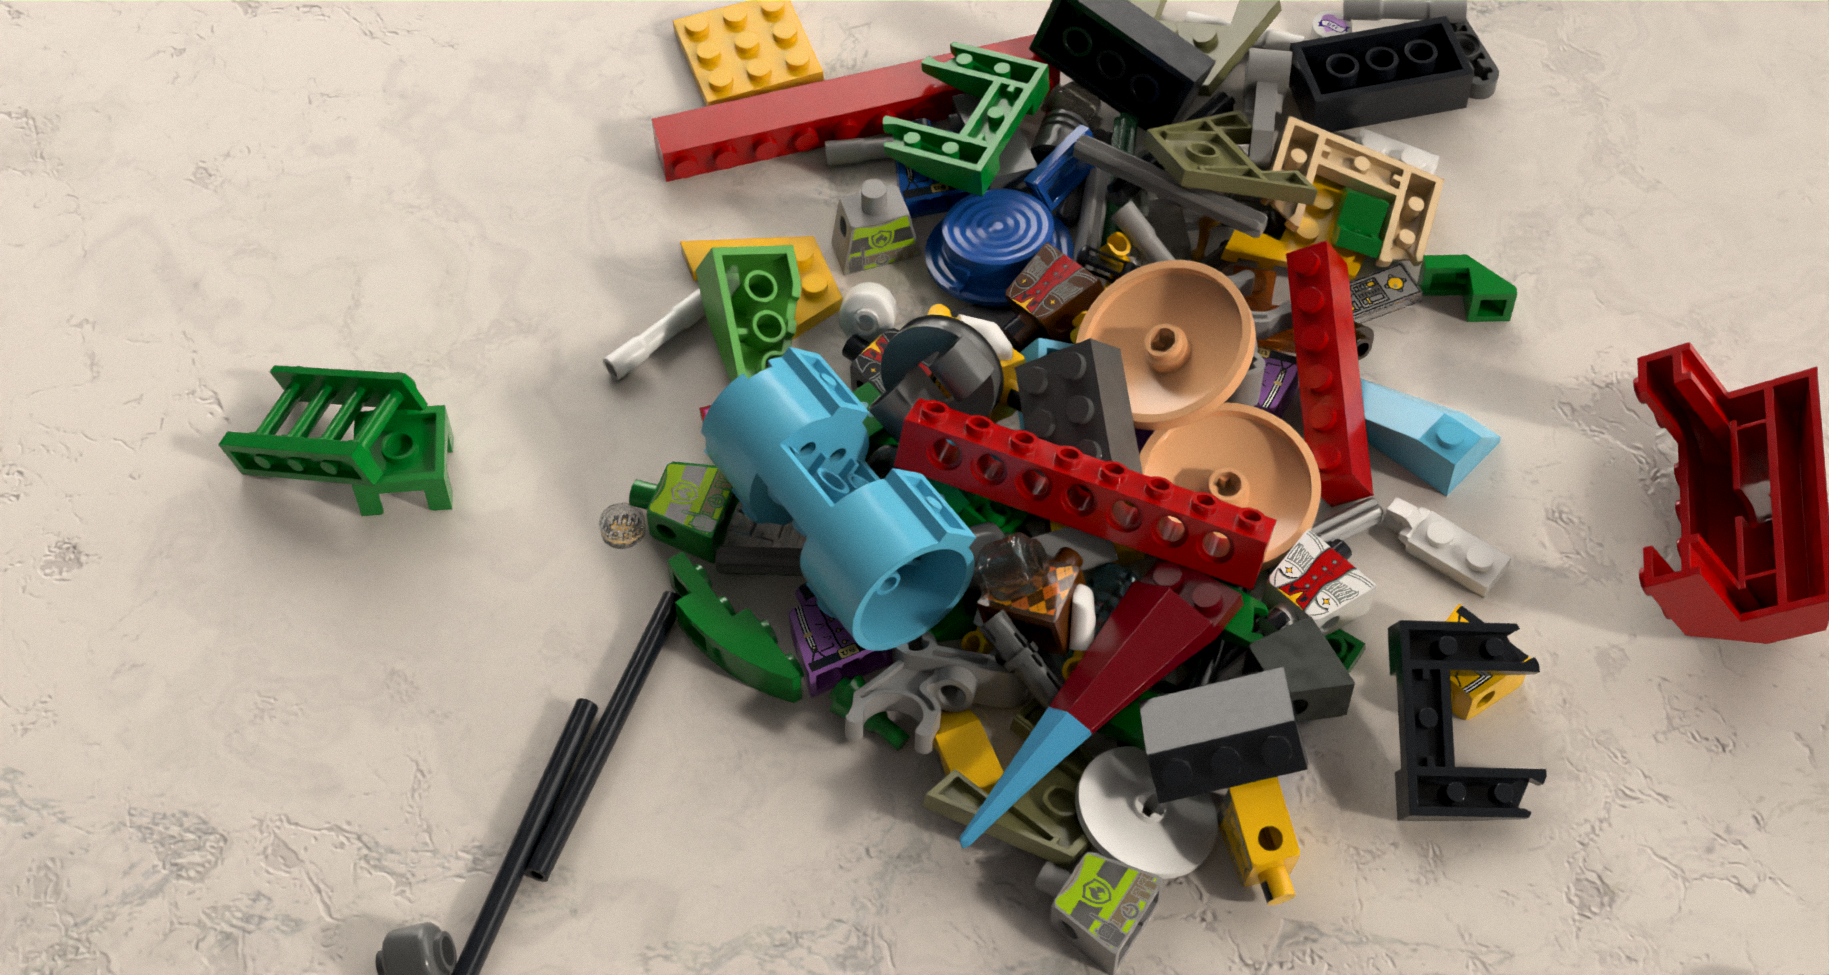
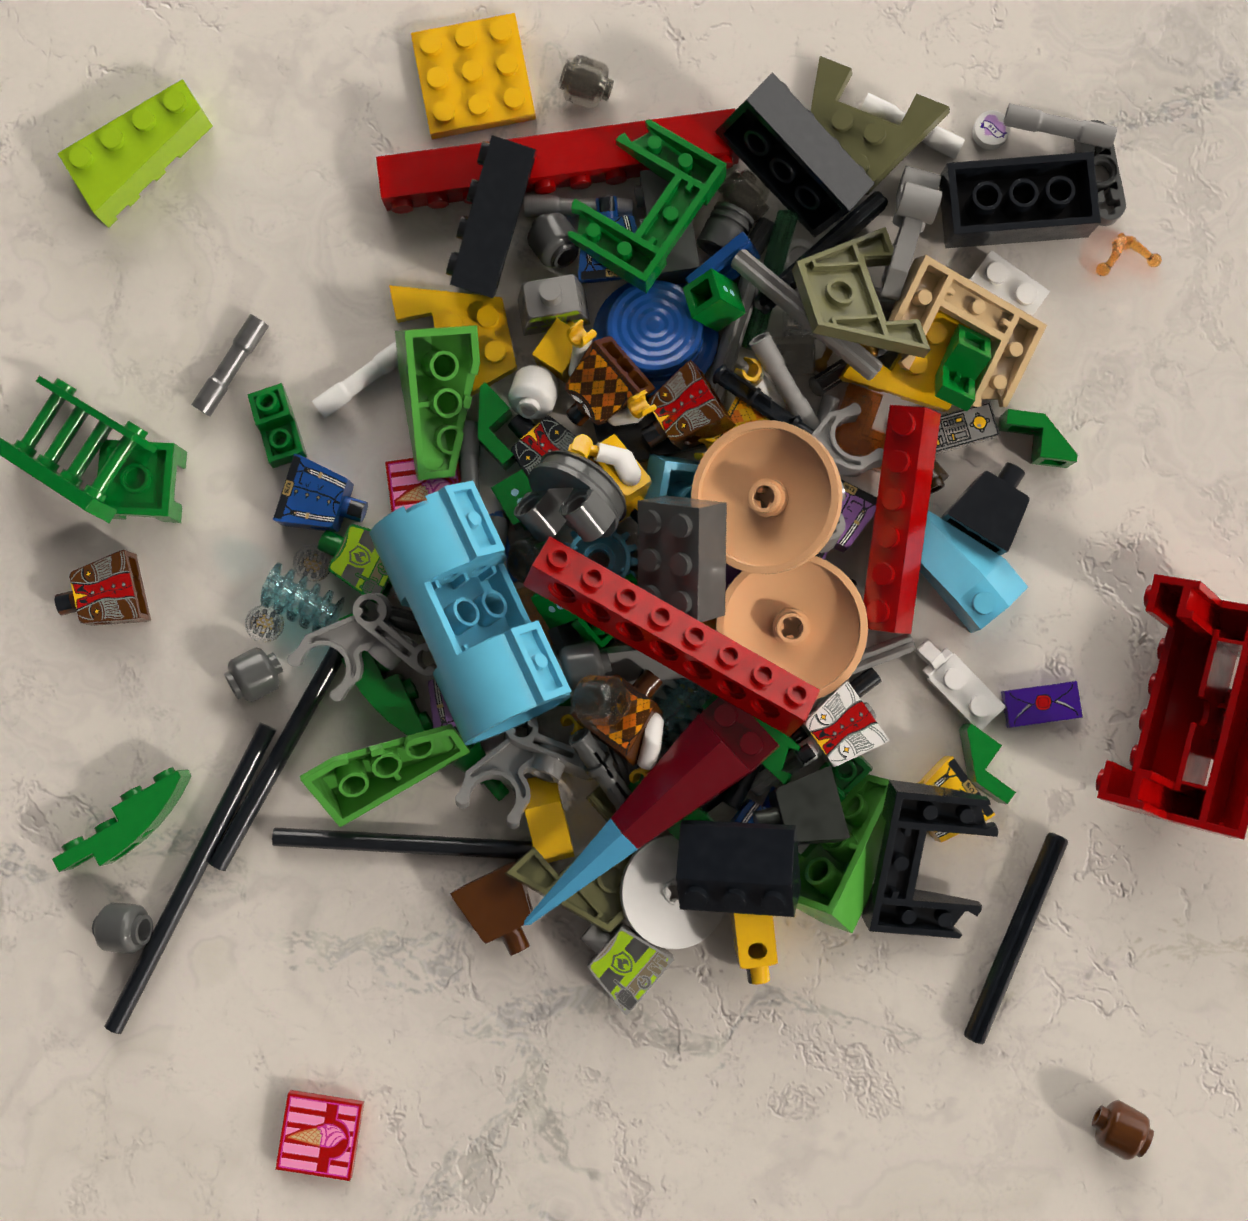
camera: 10 degrees right, 30 degrees up
(367, 582) = (106, 592): none -> torso
(370, 151) = (134, 150): none -> lime wedge
(429, 825) = (137, 819): none -> green slope
(487, 359) = (218, 383): none -> flat silver piece
(563, 392) = (276, 424): none -> green slope
(563, 644) = (253, 674): none -> dark grey head
(569, 596) = (264, 624): none -> clear tile
(615, 558) = (298, 600): none -> clear light blue piece
(619, 449) = (317, 498): none -> blue torso
(713, 560) = (360, 633): none -> light grey piece
(733, 710) = (369, 776): none -> bright green wedge
(767, 815) = (400, 843): none -> black piece
(793, 142) = (493, 216): none -> black brick
(827, 339) = (492, 416): none -> green slope
(860, 165) = (550, 240): none -> dark grey head
(875, 36) = (585, 81): none -> clear smoke head
(896, 265) = (555, 350): none -> yellow brick
(917, 862) = (496, 908): none -> reddish brown torso
(949, 274) = (604, 381): none -> torso
(1061, 191) = (714, 300): none -> green brick
(1353, 756) = (841, 874): none -> bright green wedge
(1430, 360) = (991, 508): none -> black torso
(1490, 601) = (978, 753): none -> green slope
(1510, 107) = (1125, 243): none -> clear orange piece
(1554, 553) = (1042, 704): none -> dark purple tile
(1601, 816) = (1015, 938): none -> black axle

